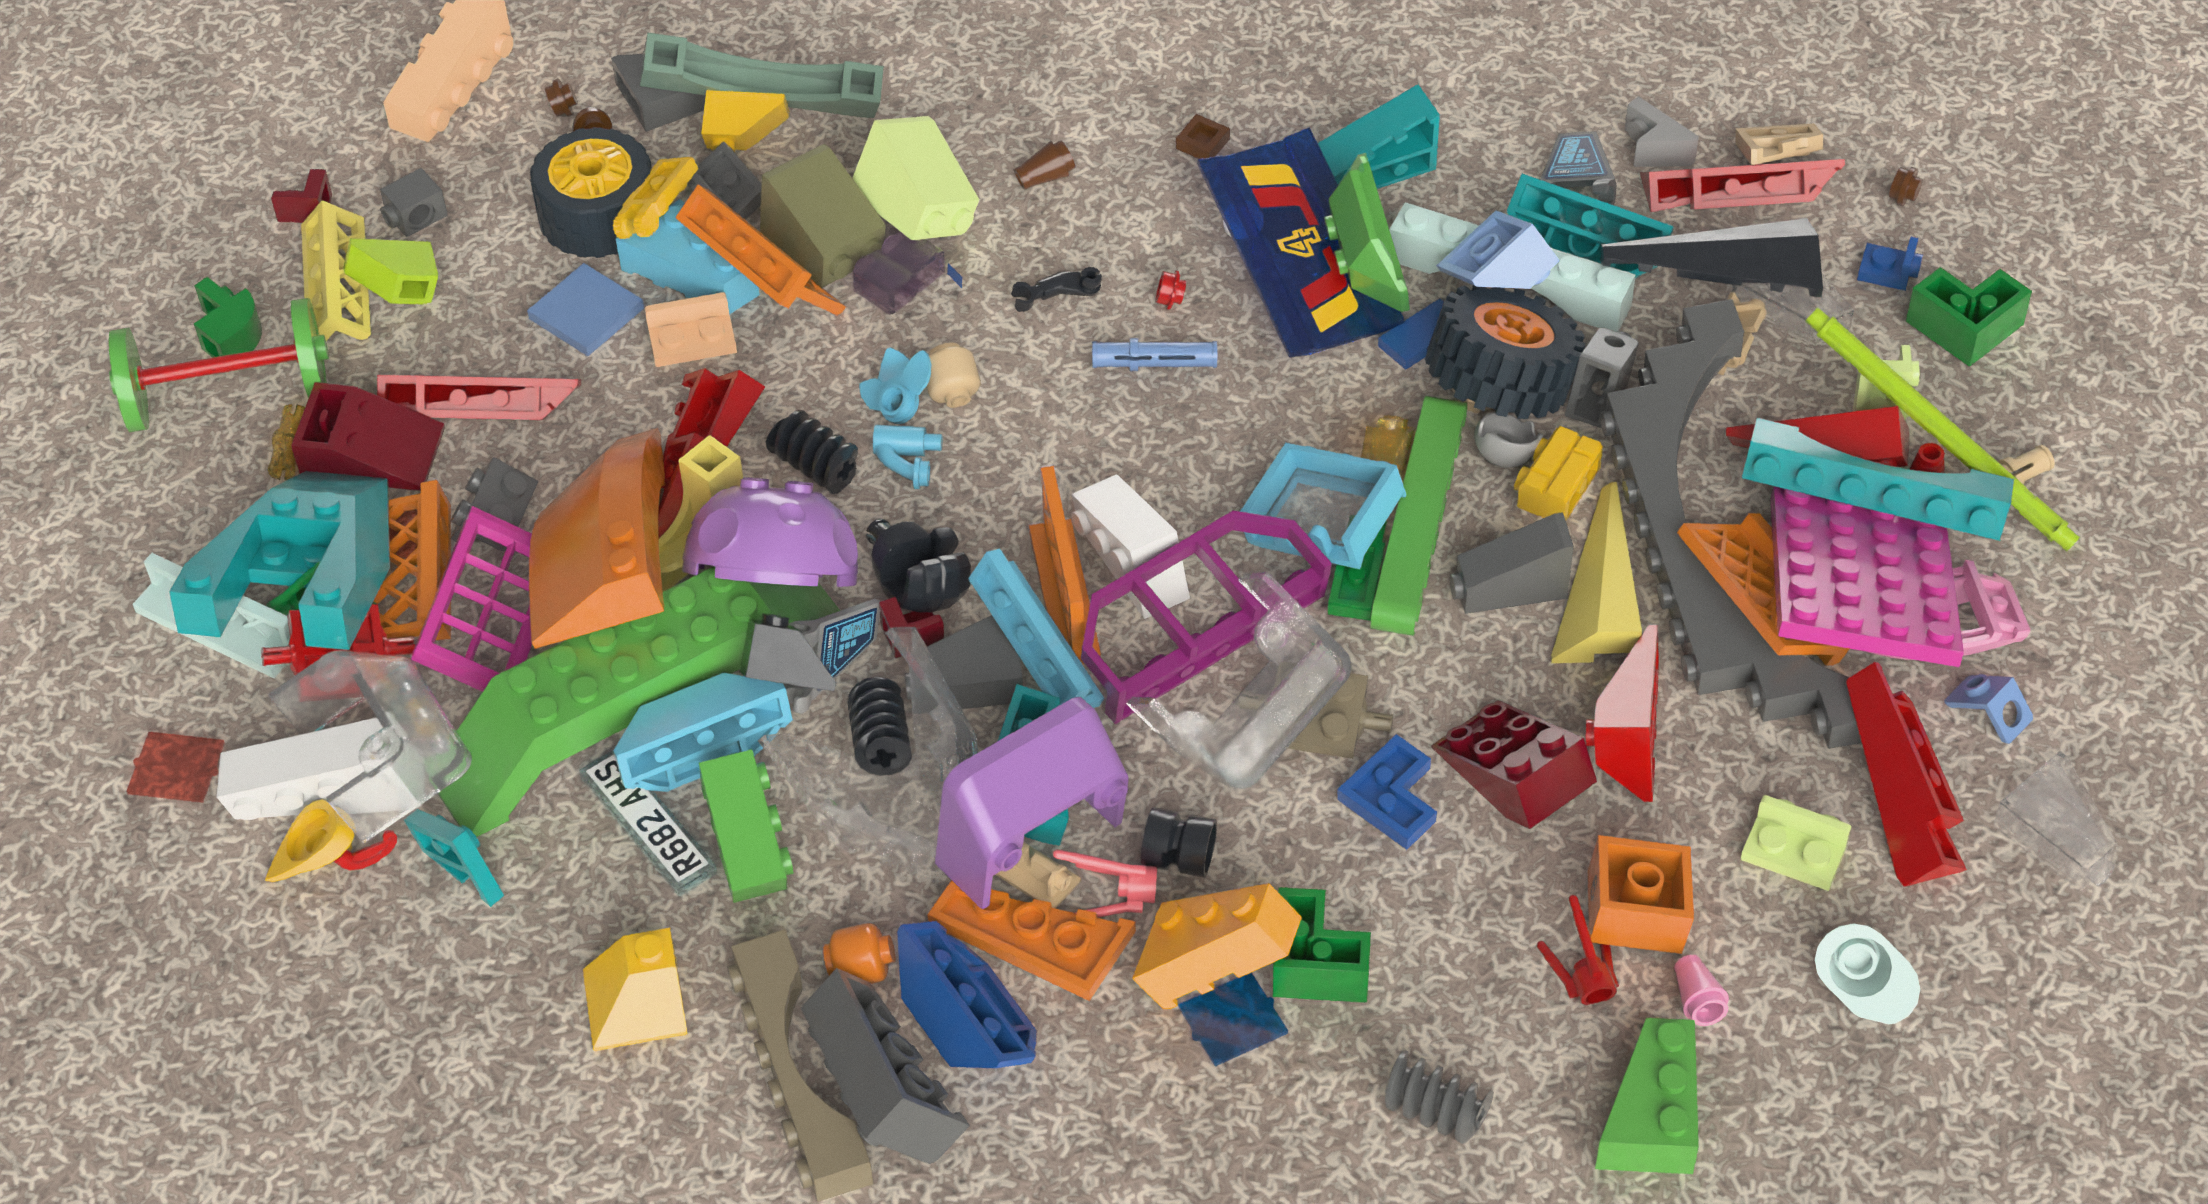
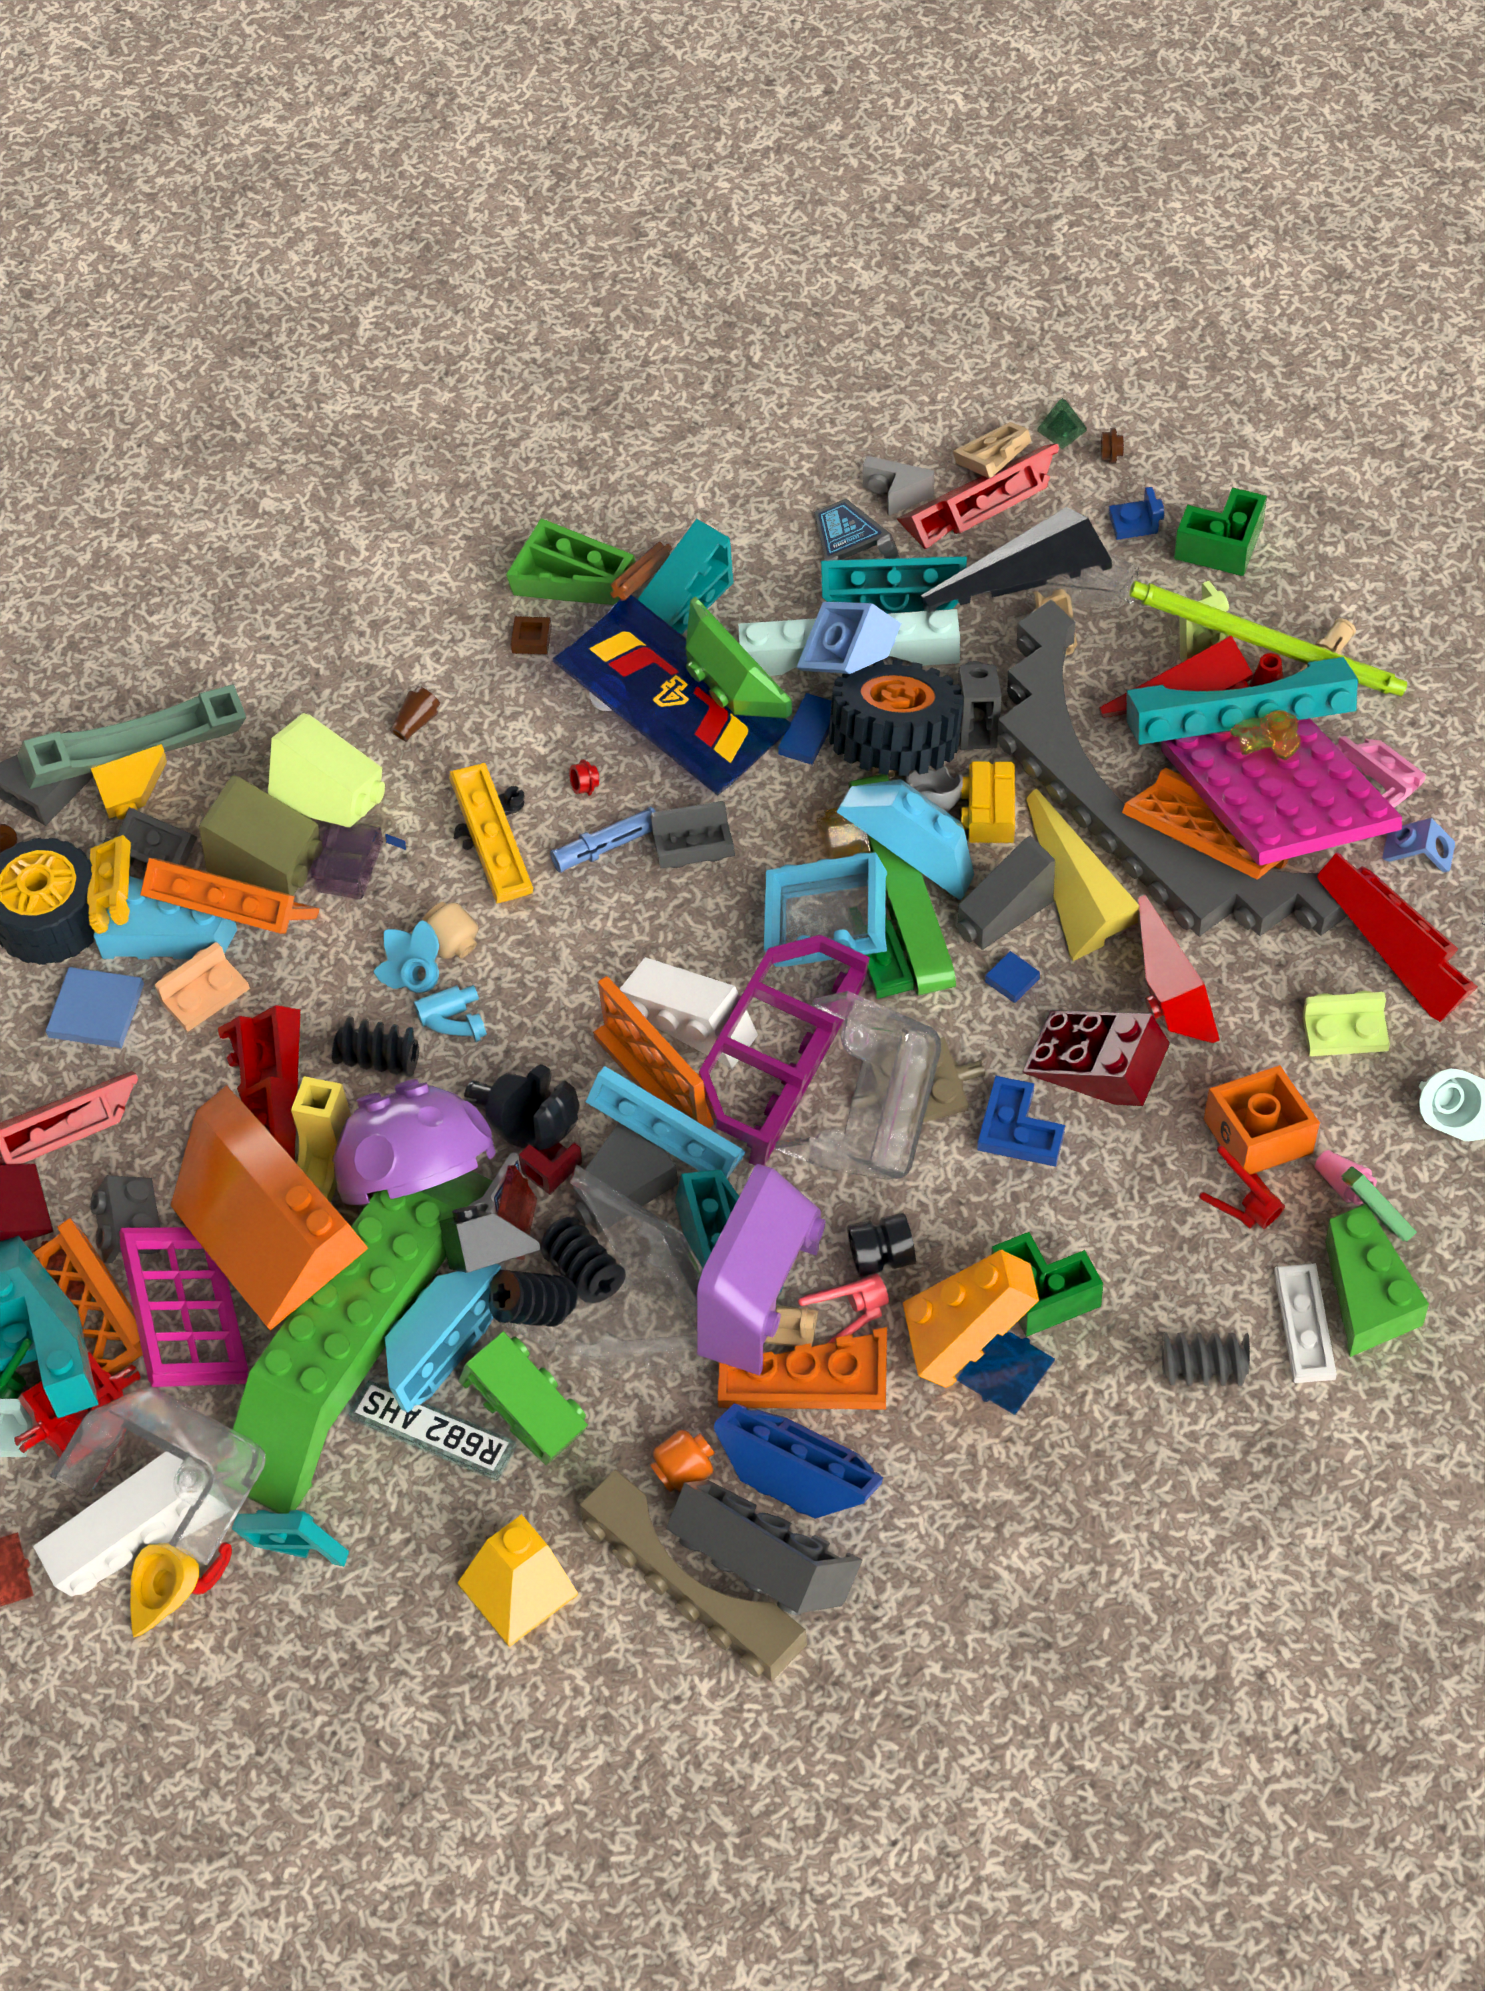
camera: 25 degrees left, 5 degrees up
(802, 734) = (531, 1298): none -> black piece
(848, 652) = (517, 1201): none -> clear red piece
(1046, 302) = (491, 833): none -> yellow tile
(1239, 383) = (692, 835): none -> dark grey bracket
(1276, 88) = (567, 566): none -> bright green wedge
(1329, 115) = (640, 571): none -> dark orange axle
(1455, 465) = (913, 831): none -> medium azure wedge
(1477, 651) = (1012, 977): none -> blue tile
(1567, 1114) = (1305, 1323): none -> white tile
(1710, 1028) = (1378, 1204): none -> tile
(1868, 147) = (1062, 425): none -> clear green slope
(1889, 521) = (1273, 731): none -> clear yellow plate

